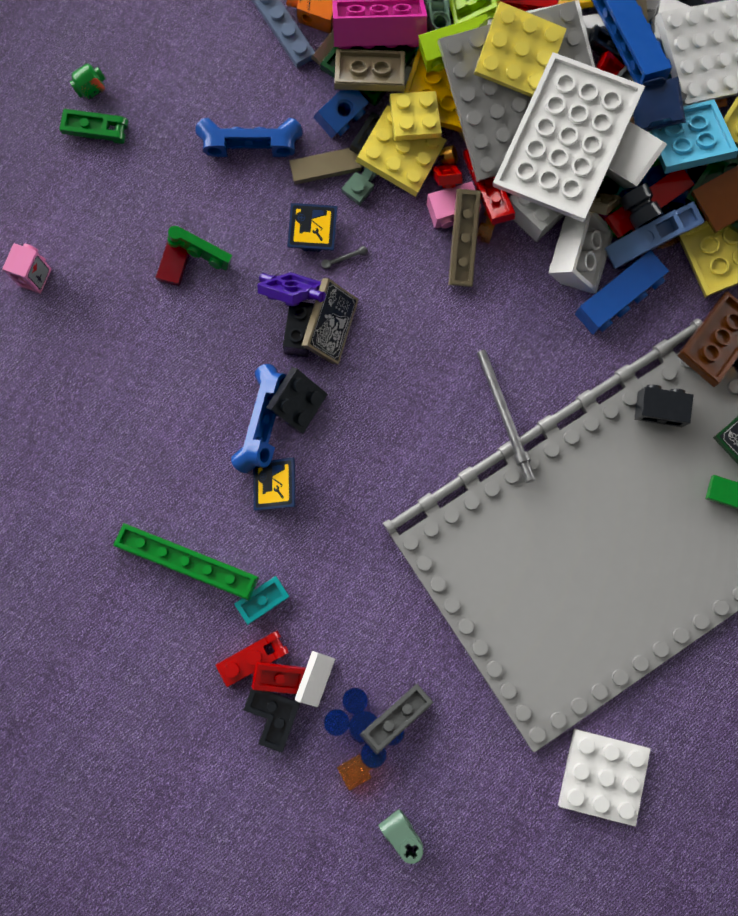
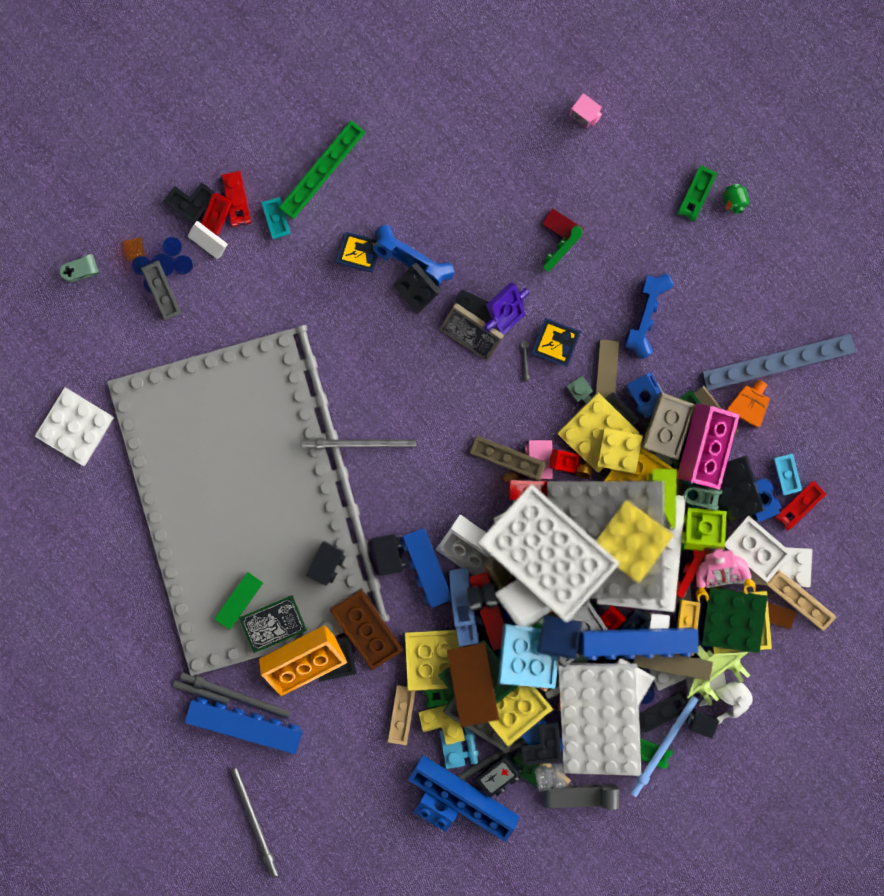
camera: 115 degrees right, 10 degrees up
(624, 341) = (388, 555): none -> black brick

